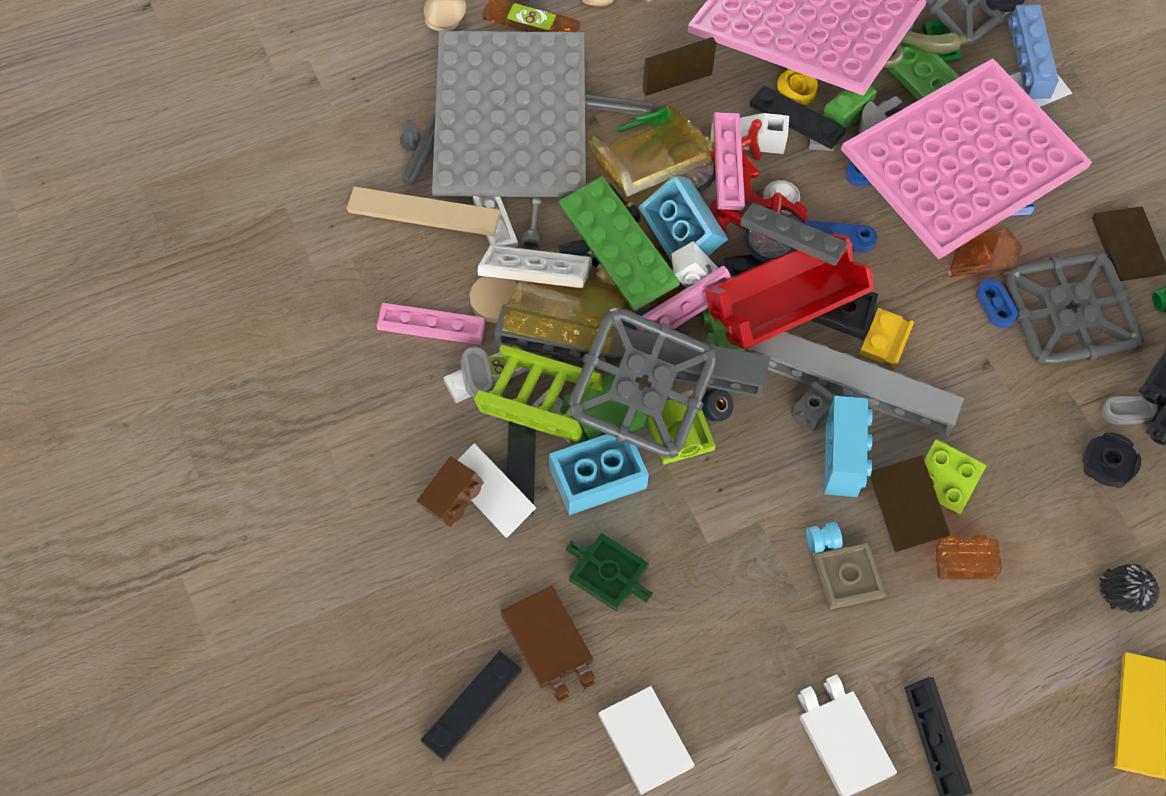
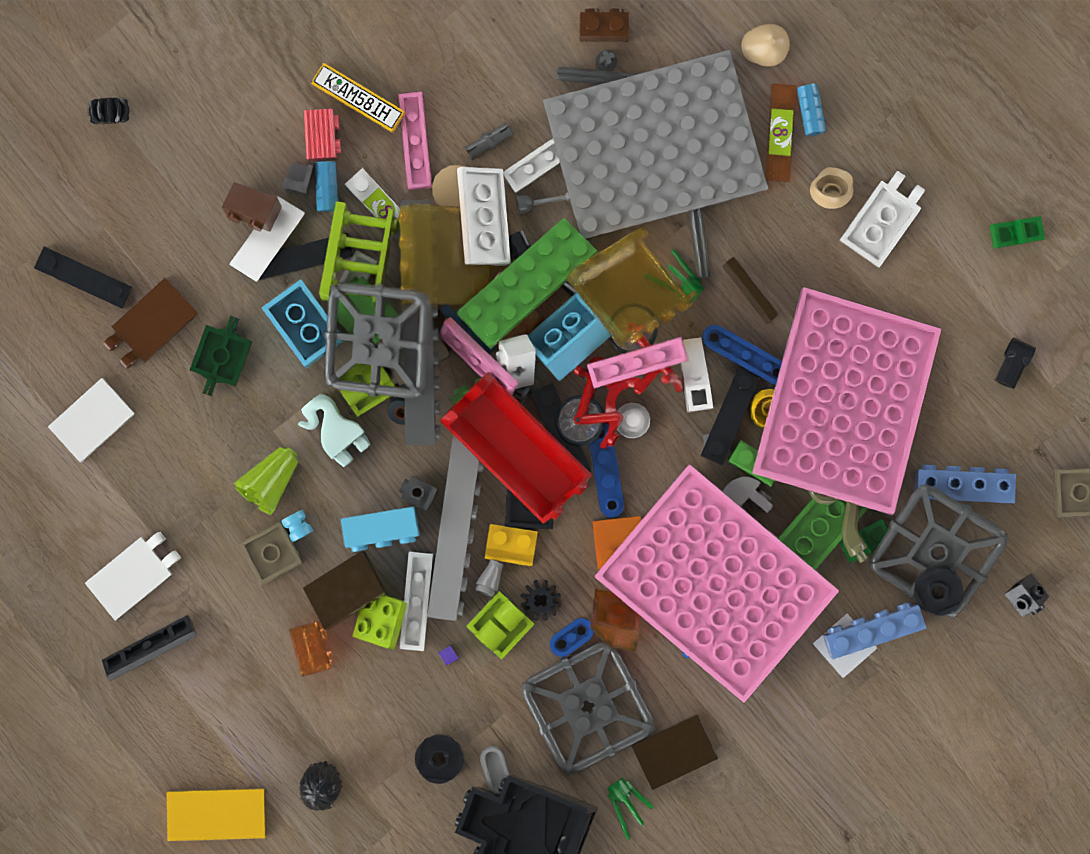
camera: 75 degrees right, 25 degrees up
(286, 617) = (108, 110): none -> black gear
(366, 362) = (358, 98): none -> tile
(376, 127) = (604, 26): none -> reddish brown brick
(394, 406) = (321, 134): none -> coral brick
(424, 211) = (524, 98): tan tile -> none
(435, 441) = (299, 179): none -> flat silver panel
(452, 416) = (326, 186): none -> dark azure axle
(455, 256) = (488, 141): none -> dark grey pin
(476, 371) = (370, 195): light grey tile -> none
(726, 471) = (336, 431): none -> light aqua hips
(740, 90) = (742, 353): none -> blue plate
(767, 553) = (268, 479): none -> lime cone
(794, 234) = (574, 438): dark grey plate -> none
(899, 244) = (610, 535): none -> orange plate
(921, 363) = (490, 578): none -> light grey cone
(921, 435) = (417, 596): none -> white plate
(952, 320) = (540, 591): none -> black gear
(972, 364) = (500, 625): none -> lime plate
(996, 423) = (448, 655): none -> dark purple piece

